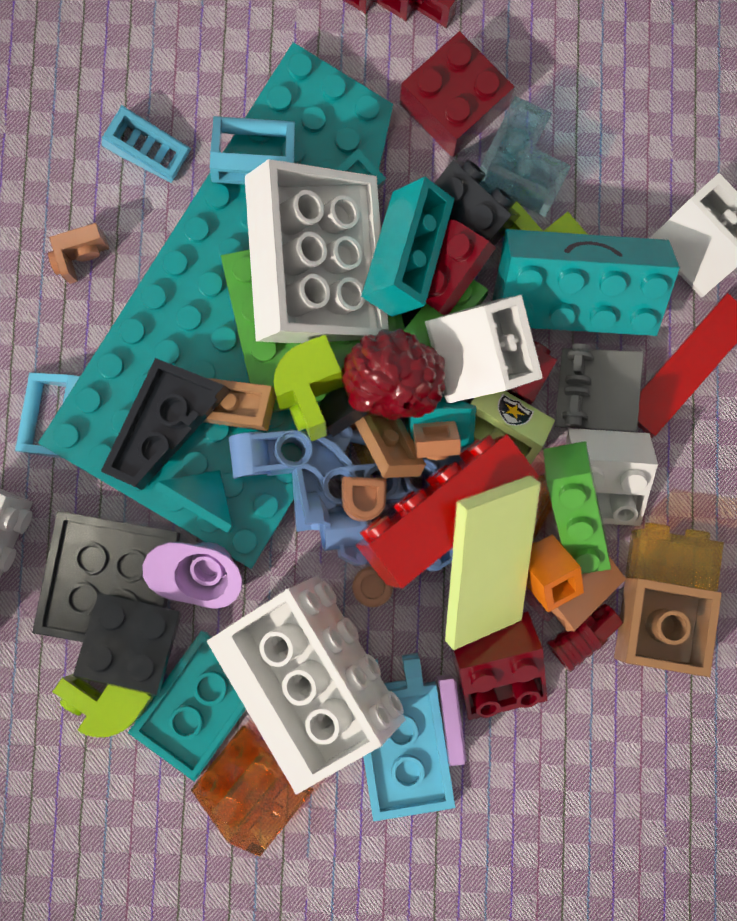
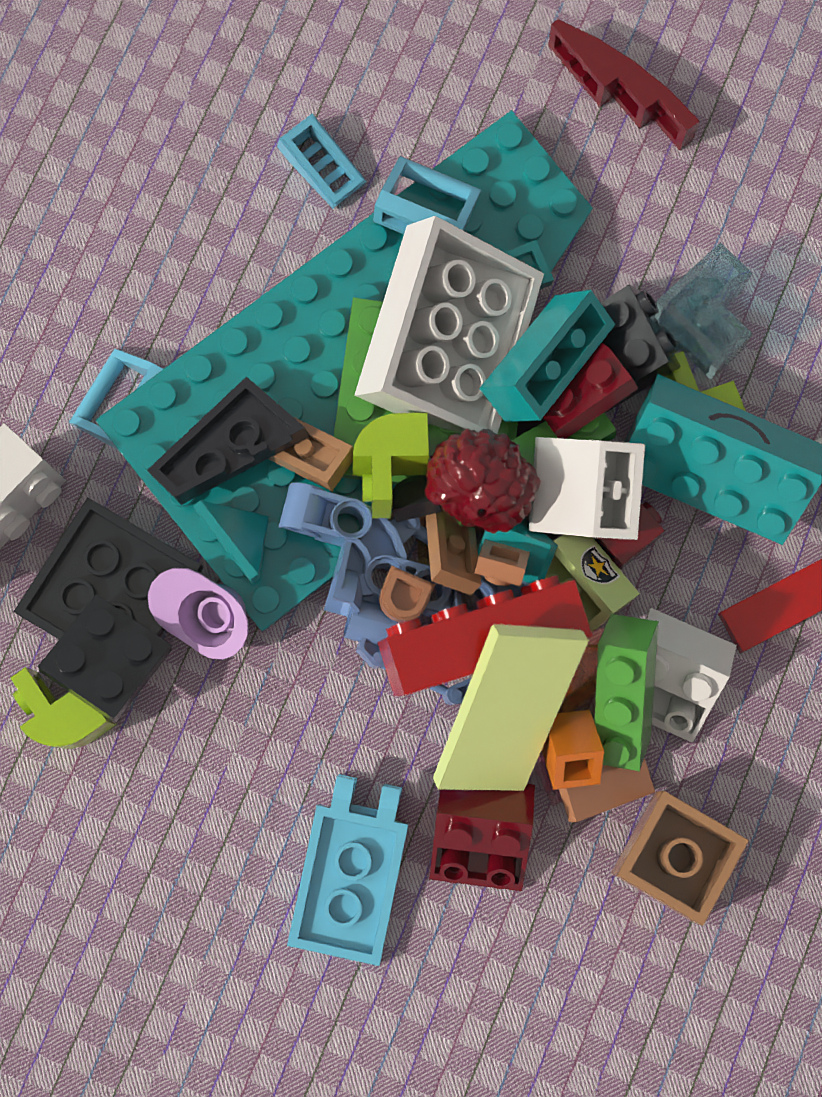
camera: 30 degrees right, 5 degrees down
(78, 244) = (215, 237): nougat bracket -> none
(192, 711) = (152, 753): teal tile -> none
(248, 793) = (171, 863): clear orange slope -> none
(308, 683) = (273, 764): white brick -> none
(370, 588) = (378, 699): nougat tile -> none
(451, 719) = (410, 869): lavender tile -> none
(456, 94) = (661, 220): dark red brick -> none
(575, 646) = (587, 837): dark red hinge -> none
(599, 389) = (700, 579): dark grey hinge -> none
(674, 558) = (715, 787): clear yellow brick -> none

